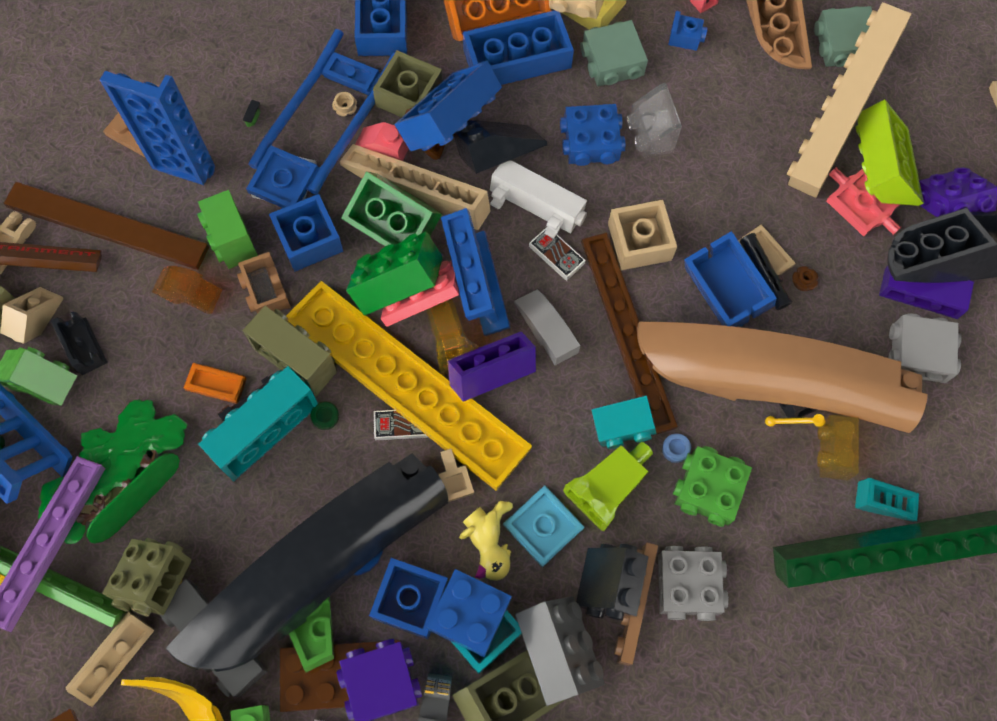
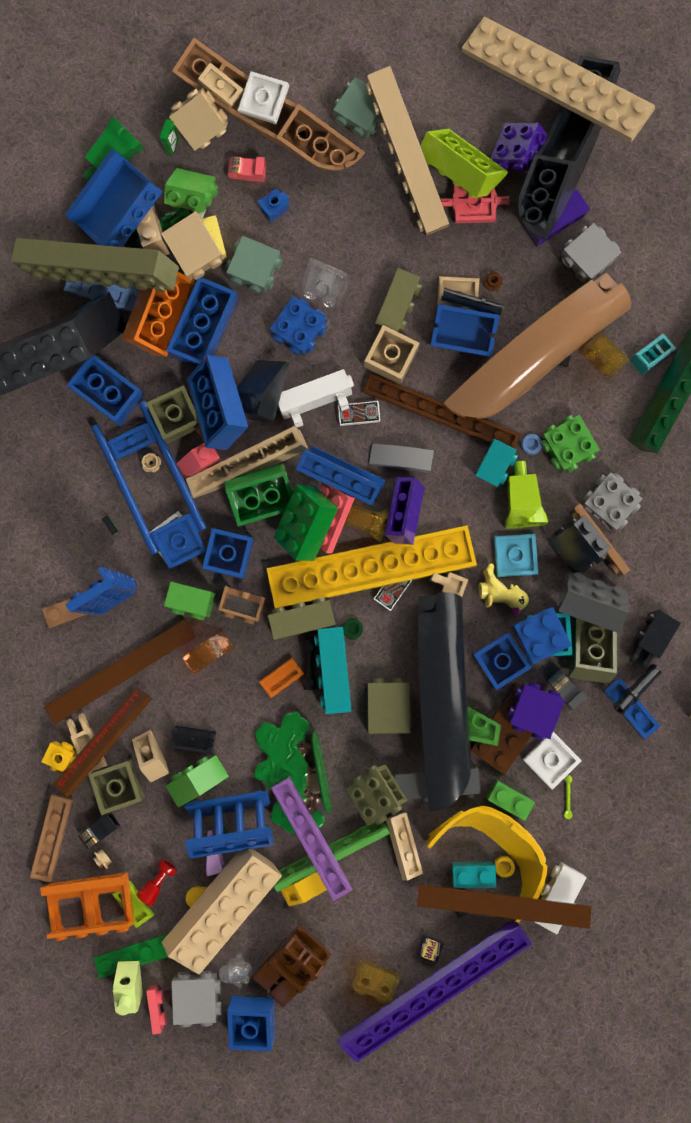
camera: 45 degrees left, 15 degrees up
(262, 515) = (388, 706): none -> olive brick
(702, 203) = (399, 301): none -> olive brick
(818, 420) = (582, 354): yellow hinge -> none

